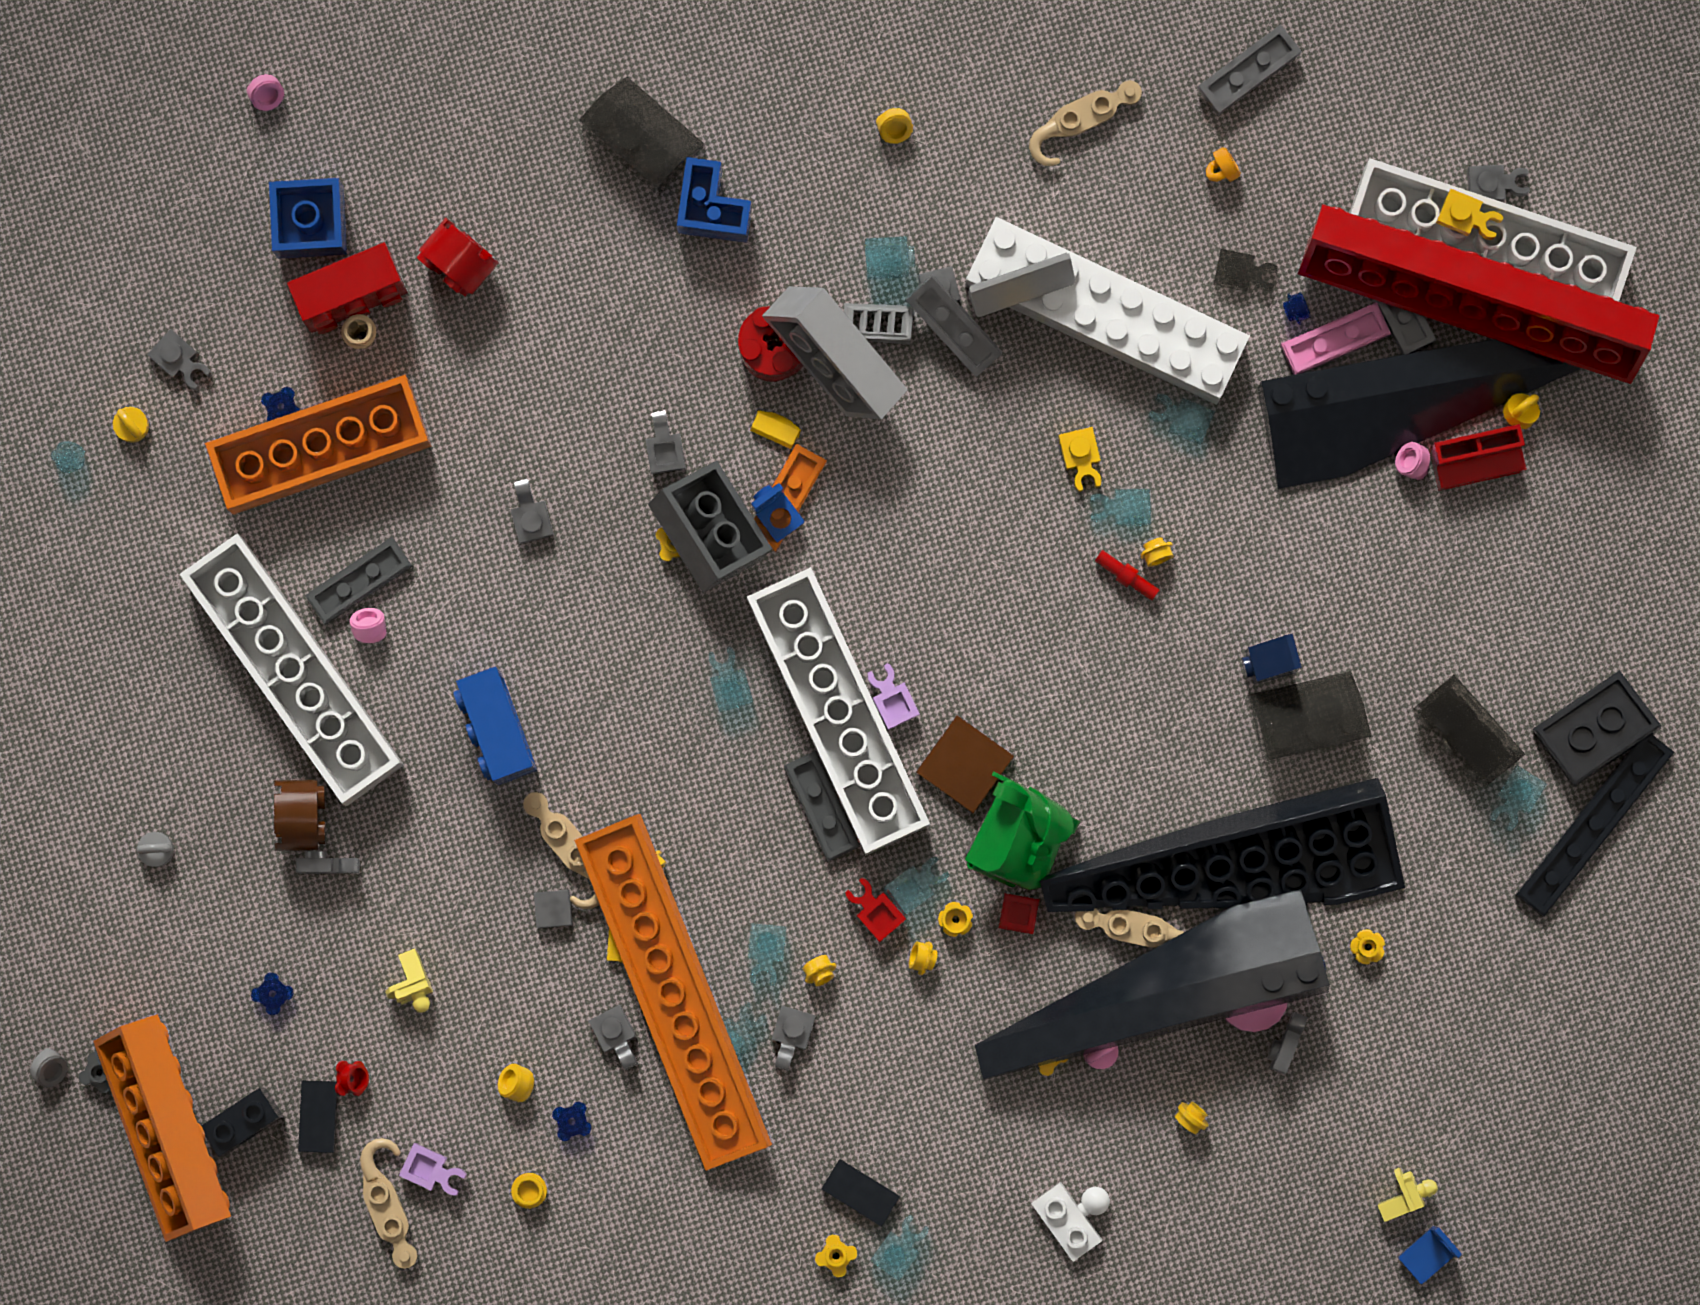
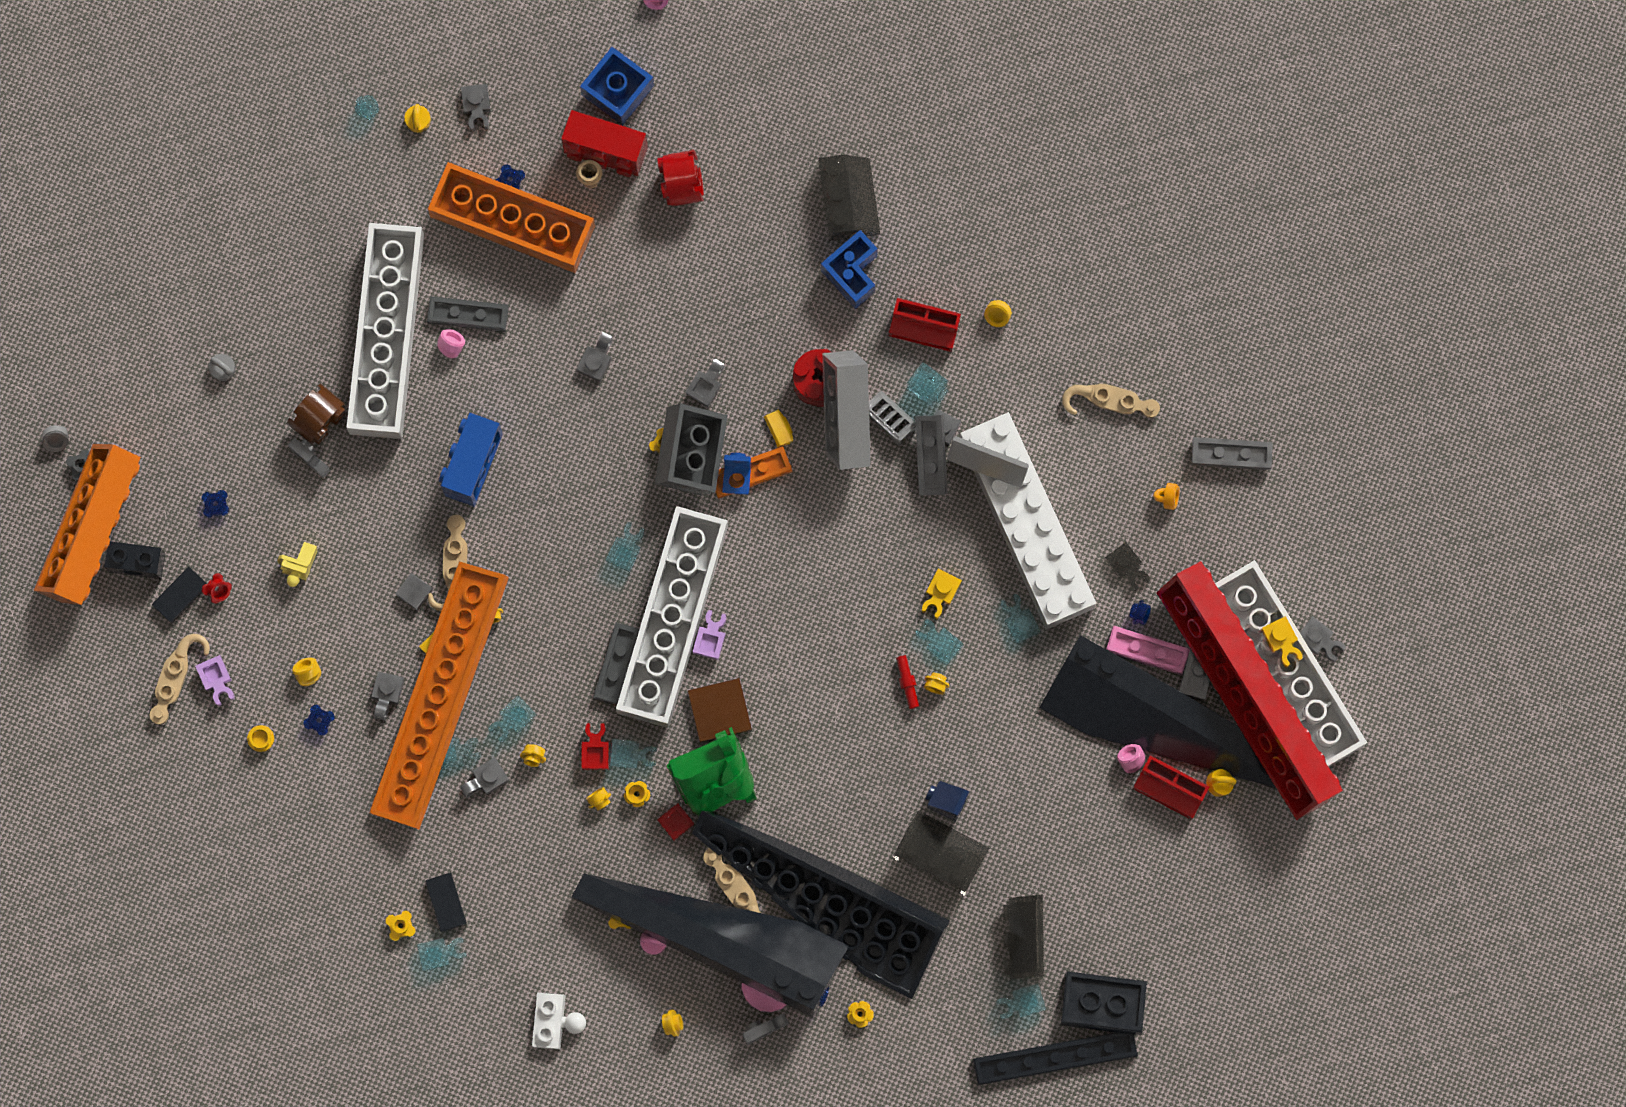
camera: 40 degrees right, 5 degrees down
(832, 199) = (924, 325): none -> red piece

